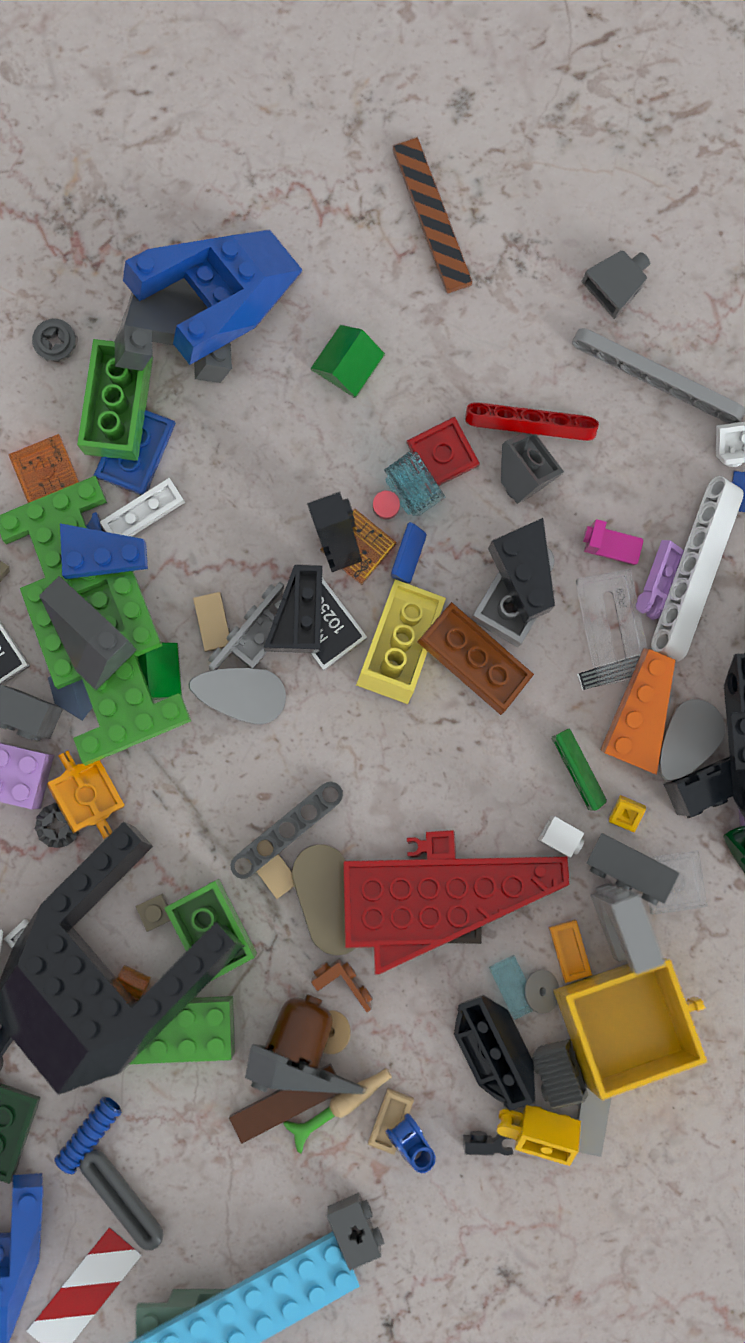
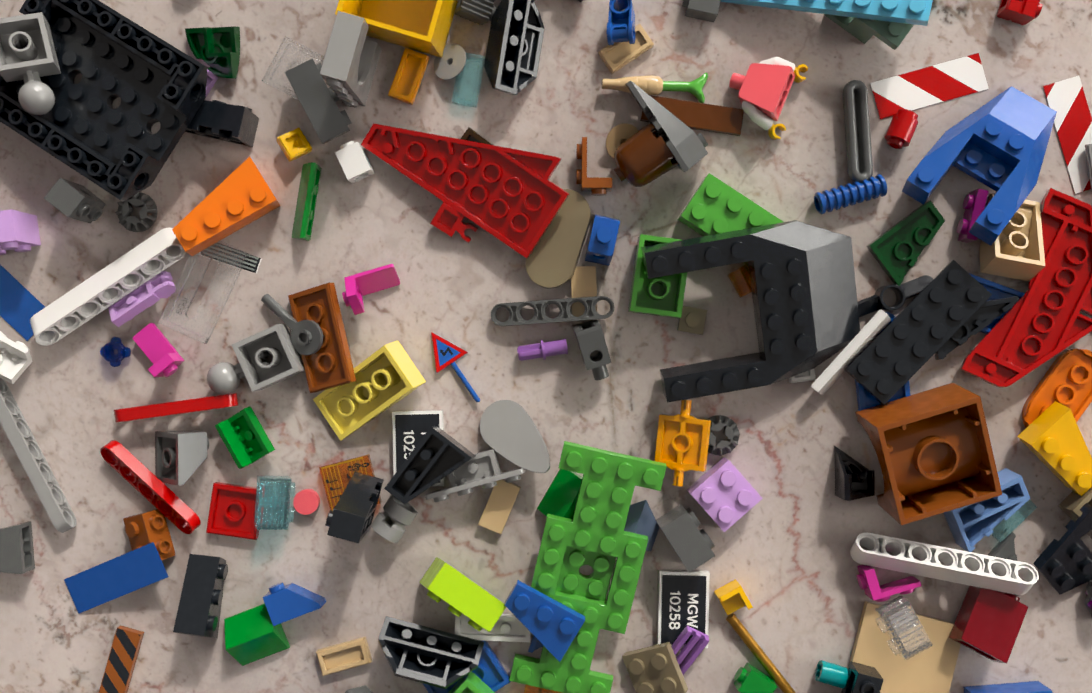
camera: 145 degrees left, 5 degrees up
(81, 1232) = (901, 129): none -> red brick
(87, 636) = (596, 557): dark grey wedge -> none
(182, 449) = (428, 653): none -> black wedge
(188, 521) = (462, 595): none -> lime wedge
(232, 1176) = (766, 90): none -> coral torso
(233, 830) = (591, 338): none -> dark grey torso
(257, 394) = (344, 656): none -> tan tile
(271, 788) = (542, 350): none -> medium lavender axle
(286, 928) = (602, 240): none -> blue torso
(297, 554) = (399, 512): none -> light grey wheel
(336, 408) = (290, 602): none -> blue slope
(355, 723) = (446, 355): none -> piece
(408, 553) = (316, 452): blue slope -> none
(417, 360) = (201, 596): none -> black wedge
(470, 736) = (368, 283): none -> dark pink bracket
(479, 521) = (244, 437): none -> green bracket
(491, 651) = (305, 334): none -> dark grey piece
(501, 377) = (150, 528): none -> dark orange bracket
(503, 323) = (116, 577): none -> blue sticker
(525, 569) = (233, 376): black wedge -> none
(574, 492) = (176, 407): none -> red beam
(656, 512) = (108, 351): none -> clear blue plate
(690, 738) = (206, 165): light grey shield -> none
(710, 657) = (147, 213): none -> dark grey gear

